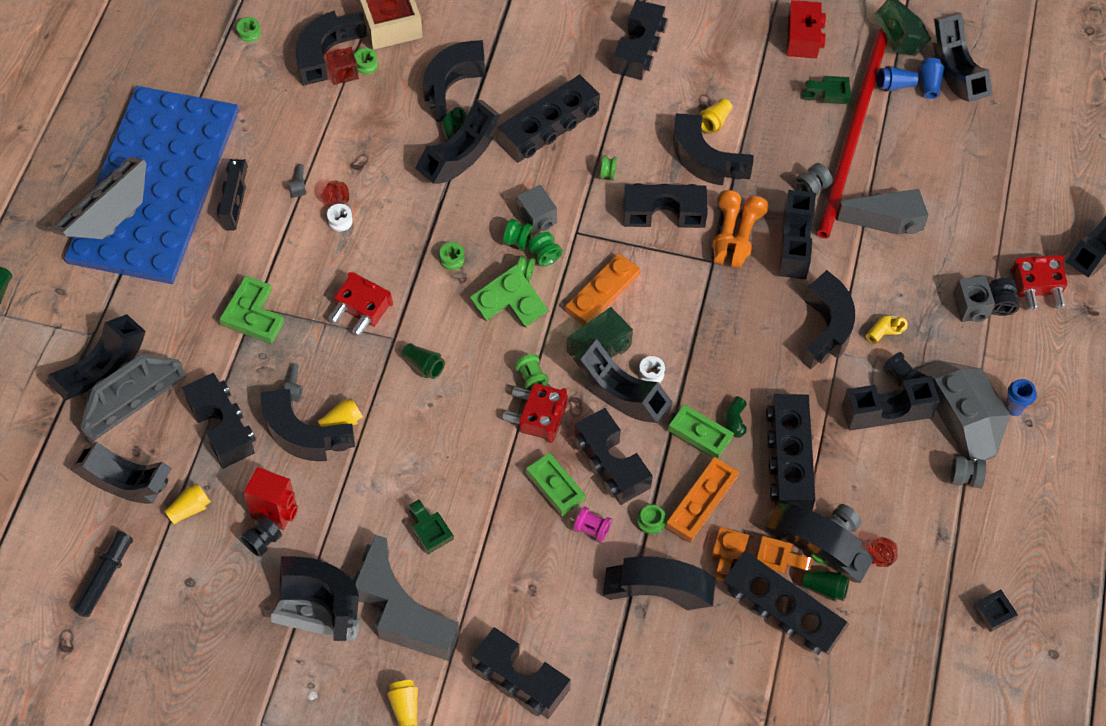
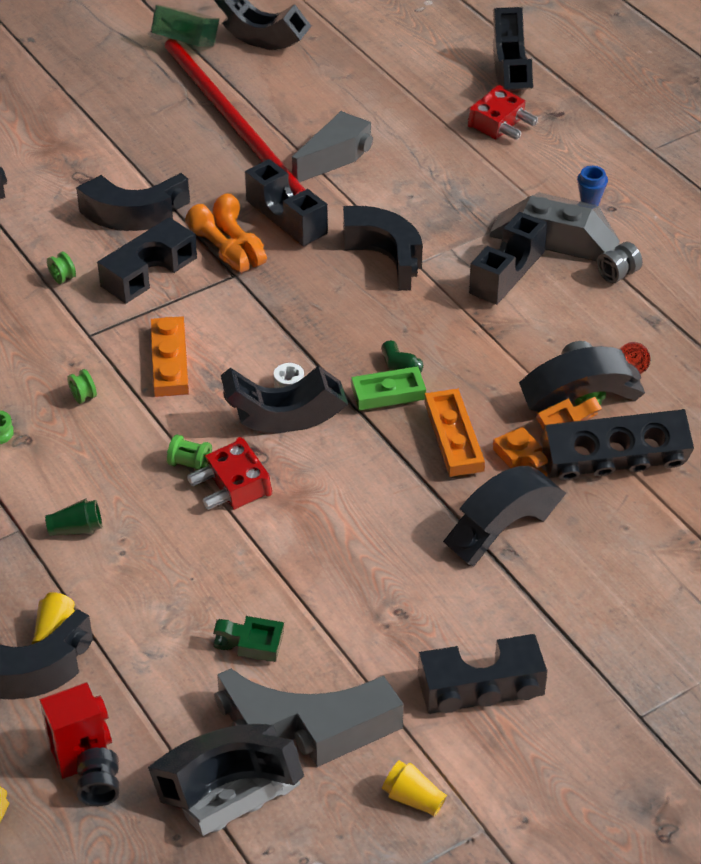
camera: 45 degrees left, 15 degrees down
(510, 290) = (95, 405): bright green plate -> none
(518, 234) = (42, 366): green wheel -> none
(537, 209) = (35, 337): dark grey brick -> none
(545, 249) = (81, 357): green wheel -> none
(555, 484) = (319, 516): bright green plate -> none
(592, 524) = (404, 519): dark pink bush -> none
(608, 329) = (209, 390): clear green slope -> none
(622, 477) = (365, 467): black arch -> none
(651, 519) = (432, 477): bright green plate -> none
(715, 115) = (106, 168): yellow cone -> none
(793, 411) = (476, 345): black brick -> none
(804, 29) = (105, 76): red brick -> none
(816, 178) = (246, 157): dark grey wheel -> none
(827, 584) = (628, 404): dark green cone -> none
(832, 89) = (180, 99): dark green plate -> none
(886, 326) = (433, 217): yellow arm -> none
(894, 78) = (220, 64): blue cone -> none
(900, 368) = (483, 235): black bush -> none
(931, 77) = (247, 46): blue cone -> none
(973, 289) = (472, 156): dark grey brick -> none
(1004, 296) = (492, 141): black wheel -> none

